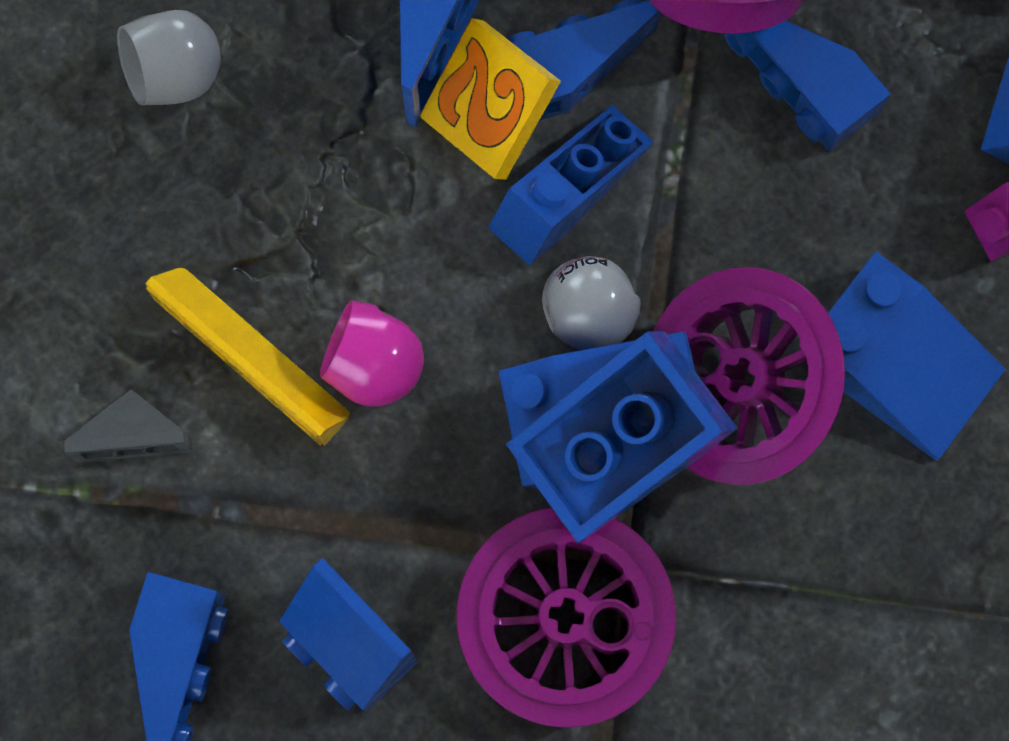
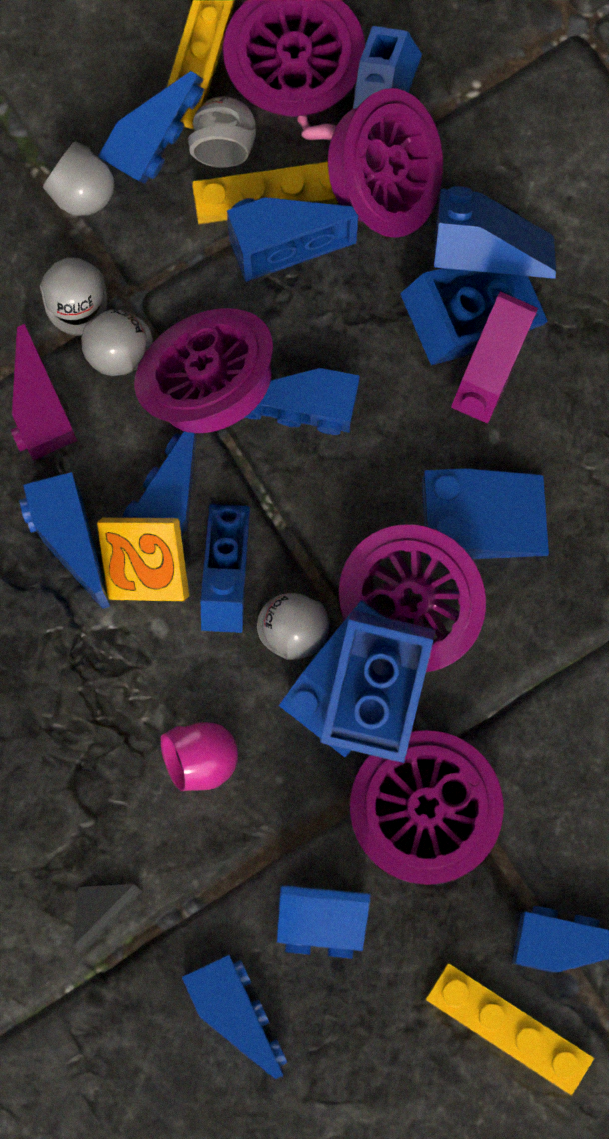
camera: 40 degrees left, 0 degrees up
(249, 354) = (128, 811): yellow slope -> none

